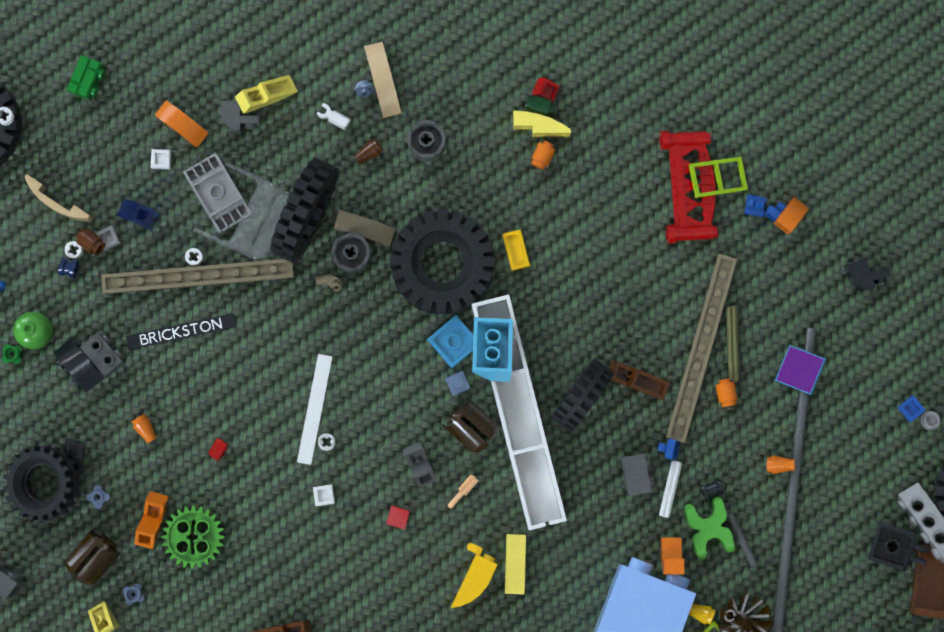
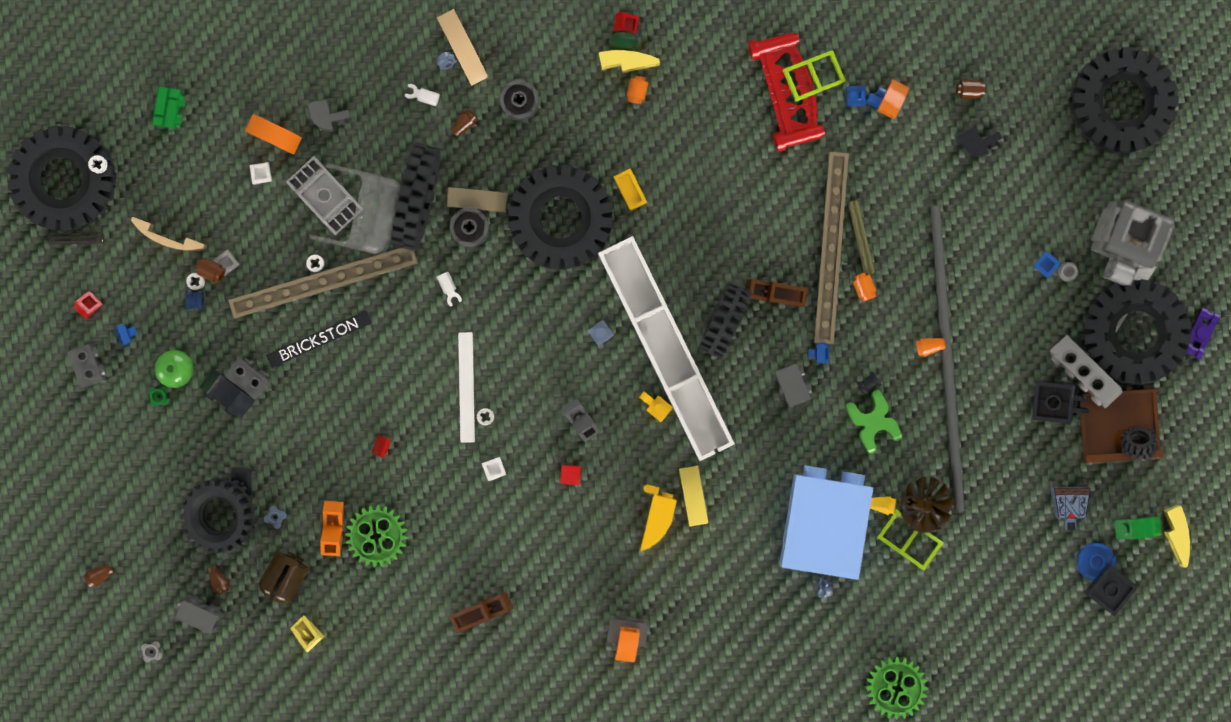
camera: 10 degrees left, 5 degrees up
(28, 549) = (218, 580): none -> reddish brown cone
(128, 594) = (325, 602): sand blue plate -> none
(138, 214) = (250, 233): clear blue slope -> none
(144, 428) = (304, 440): orange cone -> none
(265, 93) = (350, 86): light yellow slope -> none
(318, 307) = (448, 287): none -> white bar
(331, 280) = (454, 257): dark tan arm -> none
(452, 341) = (588, 292): dark azure tile -> none
(464, 489) = (628, 435): light nougat axle -> none
(465, 433) = (617, 380): dark brown cylinder -> none
(493, 348) = (628, 293): medium azure slope -> none
(498, 468) = (657, 407): none -> yellow plate
(670, 489) = (828, 394): white axle -> none
(671, 556) = (842, 456): orange brick -> none
(741, 539) = (907, 425): dark grey bar -> none
(800, 370) = (932, 249): dark purple tile -> none
(868, 222) = (970, 89): none -> reddish brown brick

